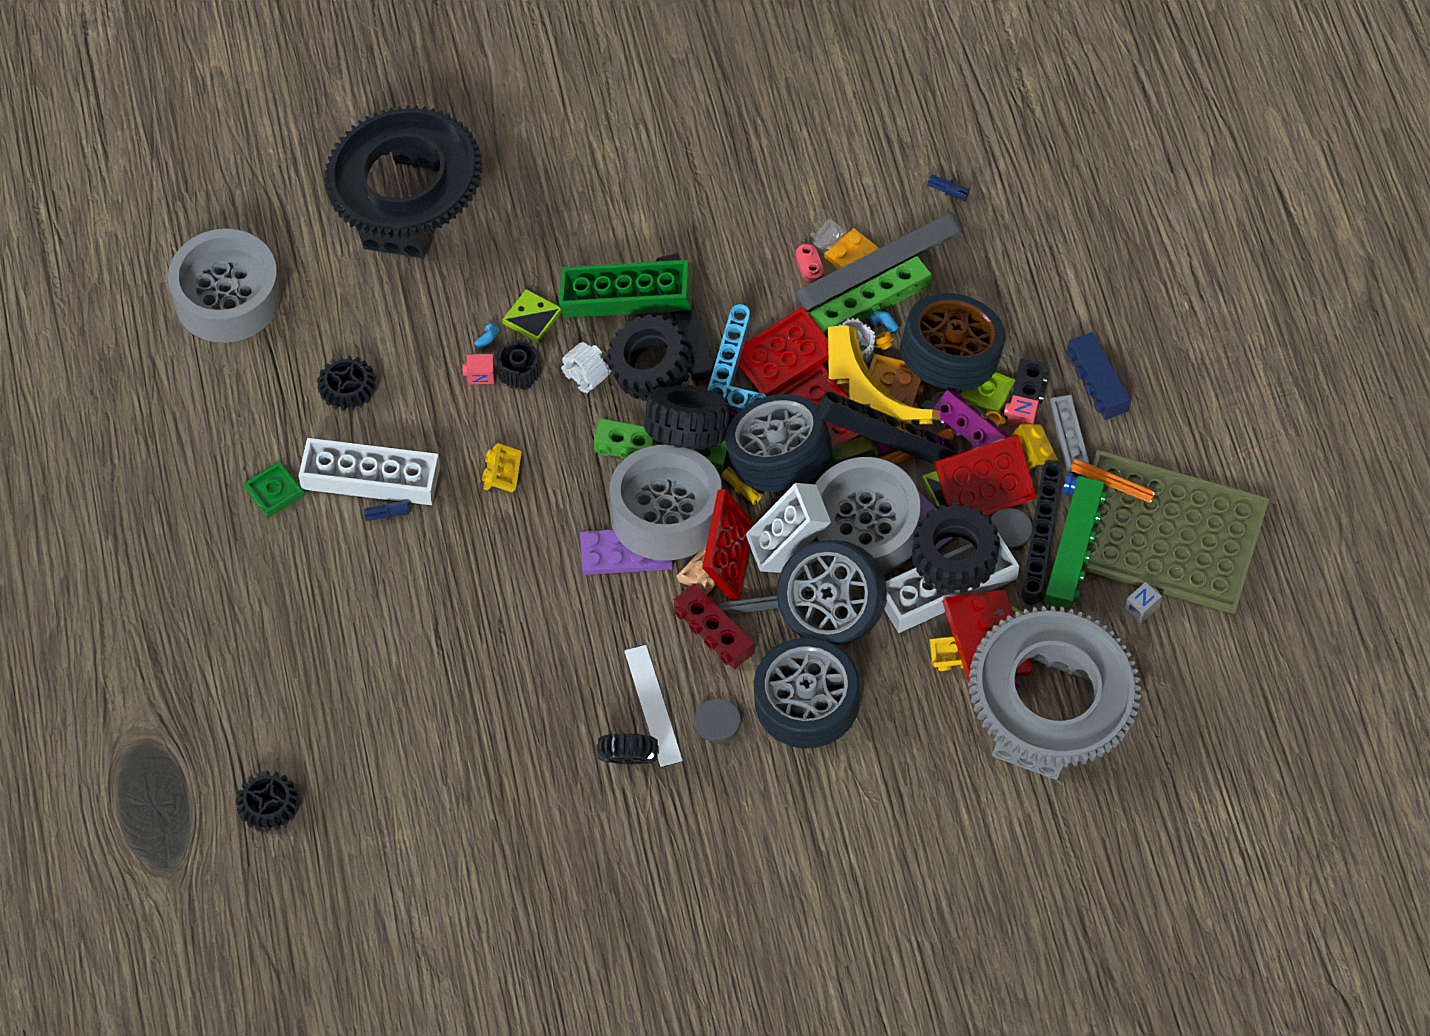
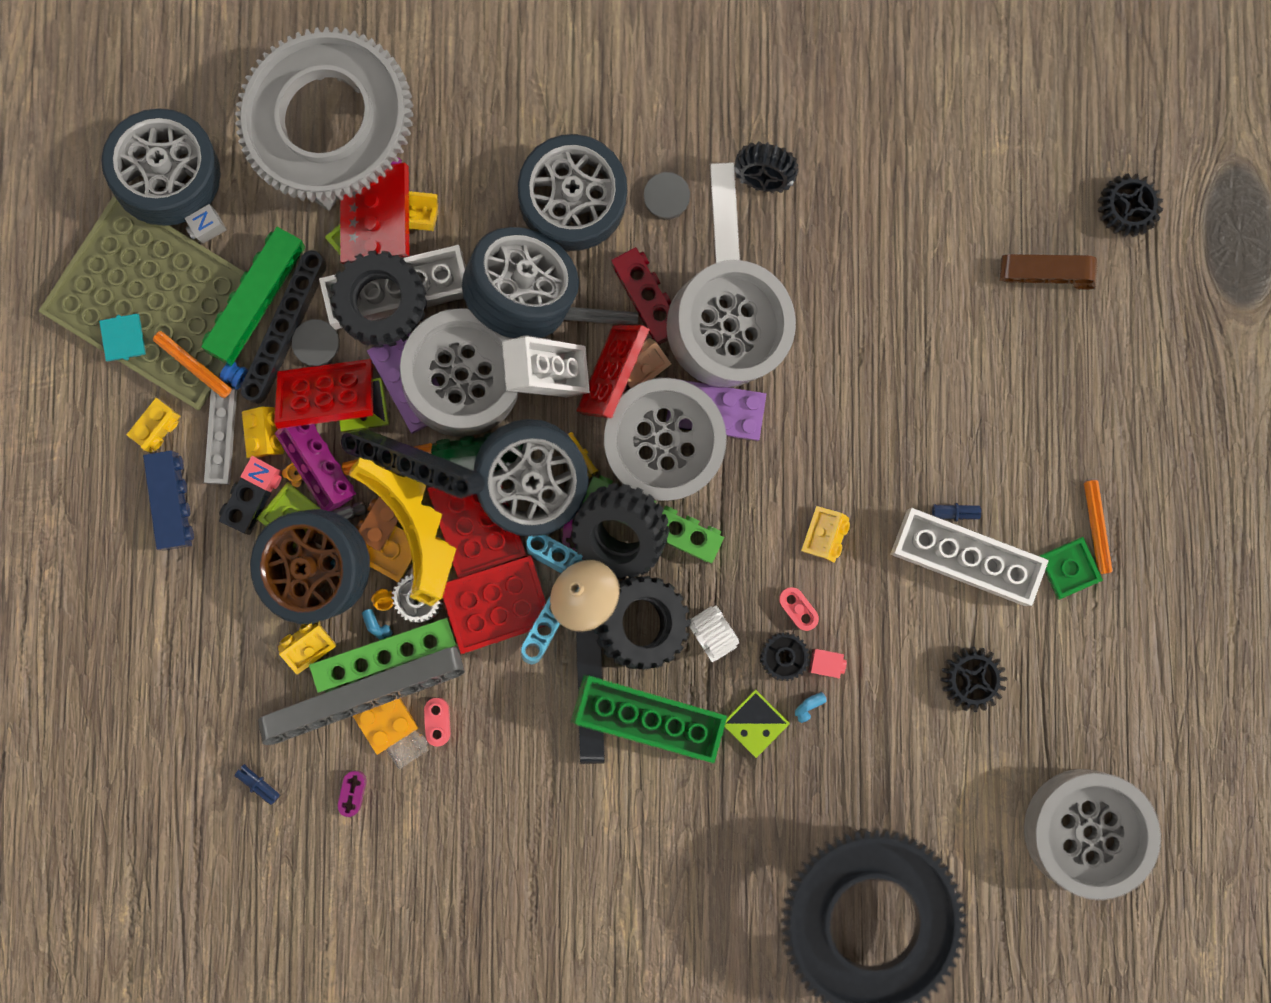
camera: 165 degrees left, 25 degrees up
(253, 526) = (1098, 526): none -> orange axle
(334, 721) = (1053, 269): none -> reddish brown beam
(515, 406) = (798, 608): none -> coral plate
(599, 588) = (769, 321): none -> light grey wheel
(697, 363) = (591, 603): none -> tan dish
(870, 197) = (358, 793): none -> magenta beam
(941, 283) = (305, 646): none -> yellow bracket
(1132, 433) = (154, 425): none -> yellow bracket
(1184, 491) = (122, 337): none -> teal piece
(1197, 631) = (161, 166): none -> wheel

